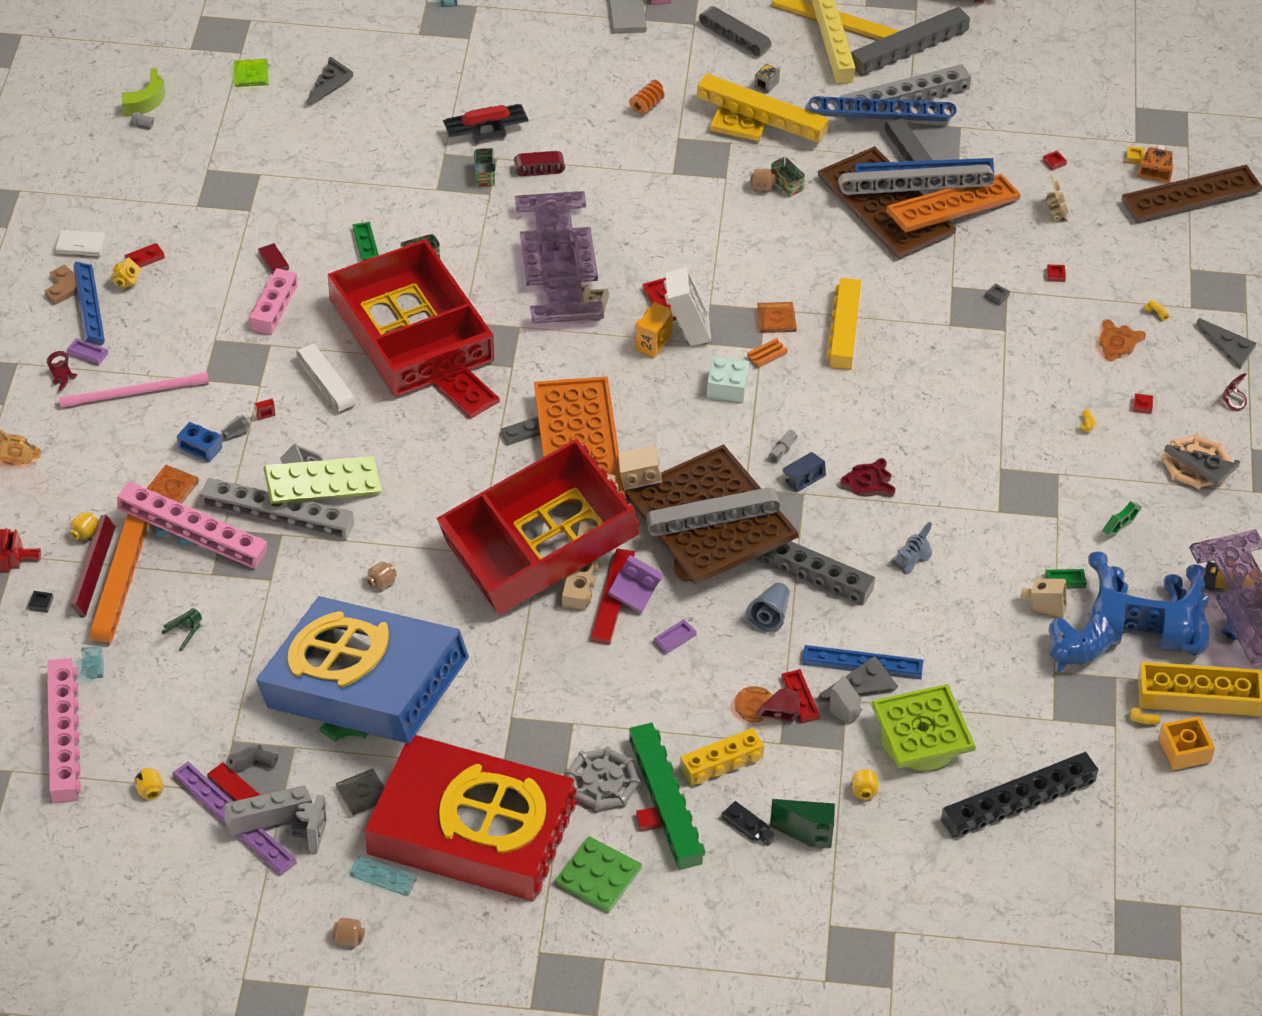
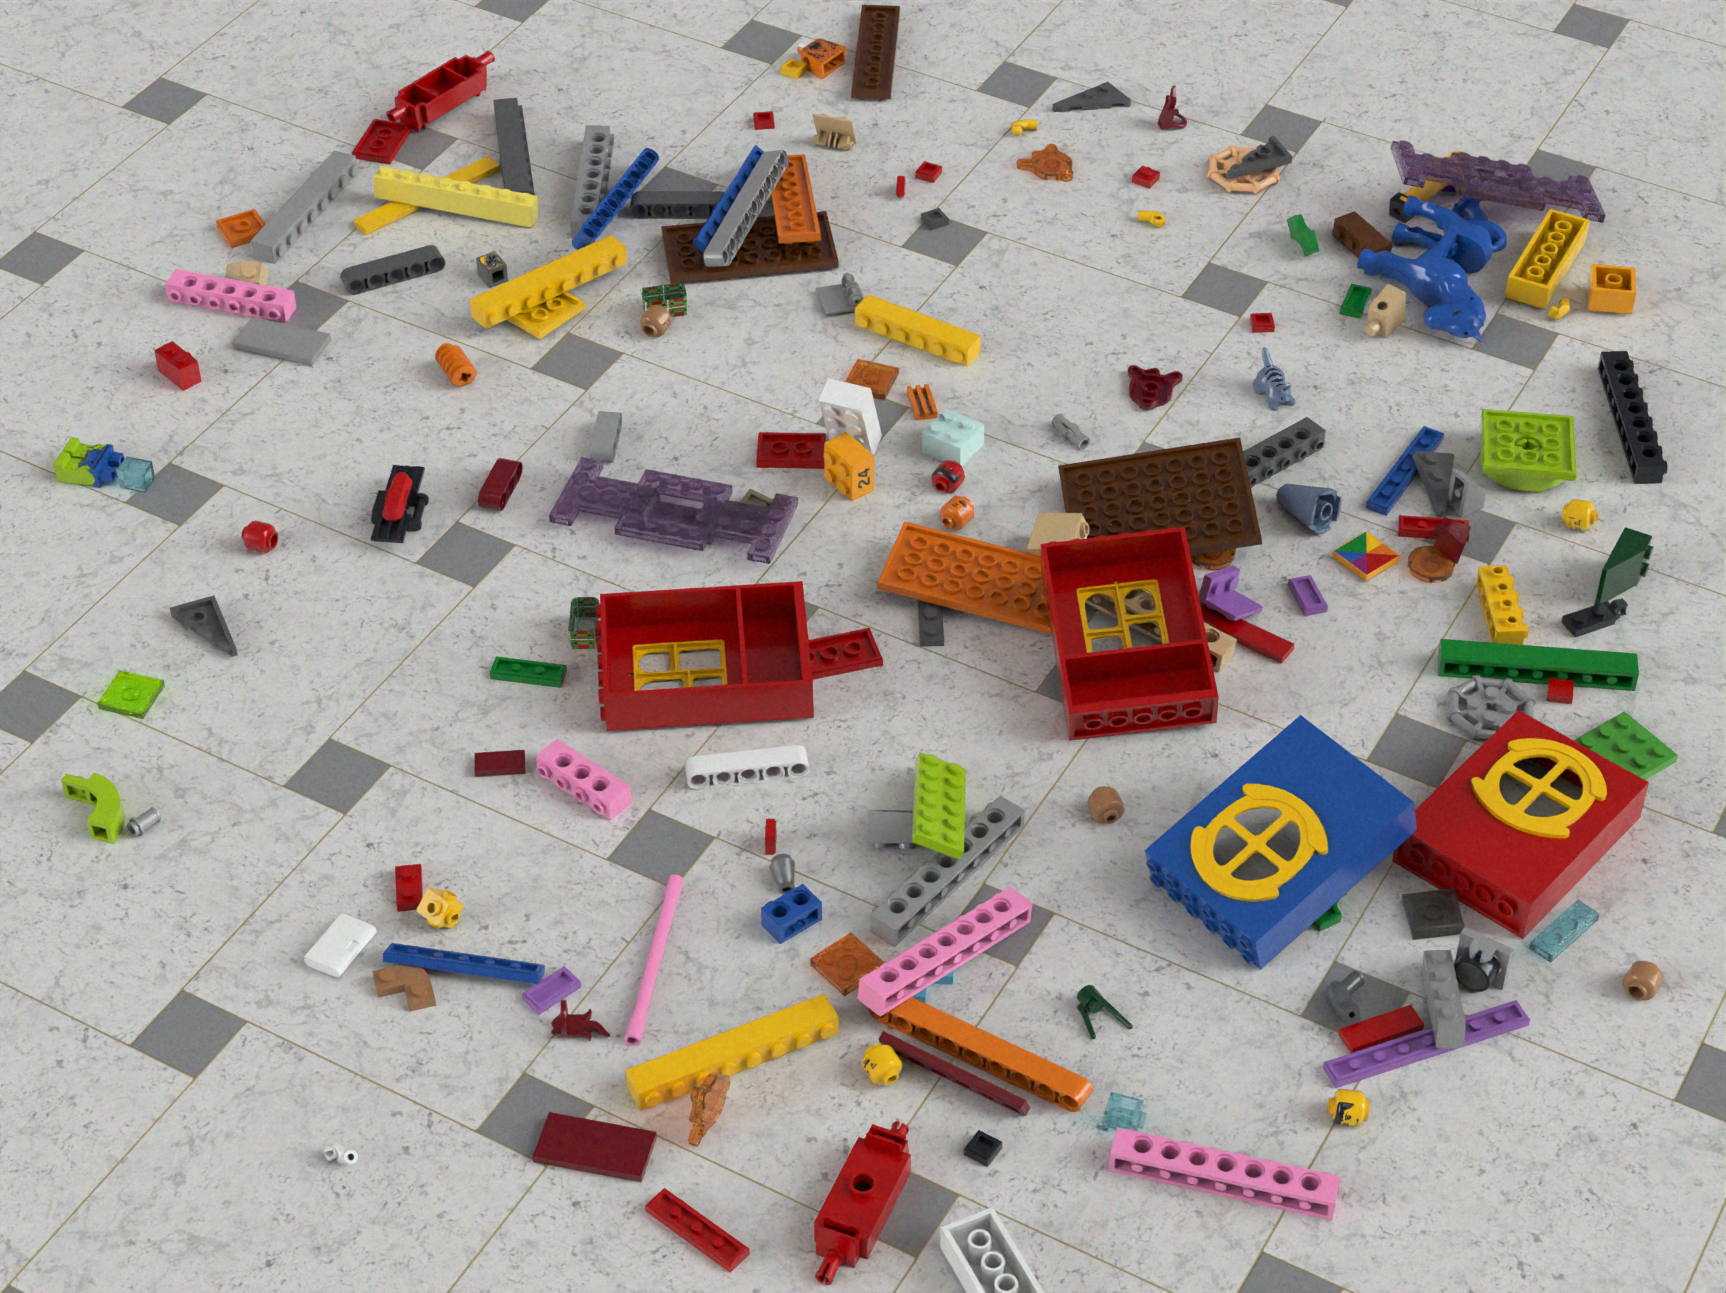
camera: 65 degrees left, 5 degrees down
(67, 451) = (732, 1051): none -> yellow brick
(419, 70) = (259, 536): none -> red head
(484, 157) = (477, 528): clear light blue piece -> none
(620, 198) = (606, 436): none -> light grey beam
(644, 406) = (957, 512): none -> orange head
(685, 390) = (949, 476): none -> red head
(712, 511) = (1175, 481): light grey beam -> none
(741, 661) = (1366, 556): none -> tile
(805, 471) = (1120, 424): dark blue hinge -> none
(862, 269) = (840, 297): none -> light grey hinge
(996, 526) = (1262, 322): none -> red tile
(1021, 261) = (901, 185): none -> red tile
(1146, 559) = (1358, 235): none -> reddish brown brick

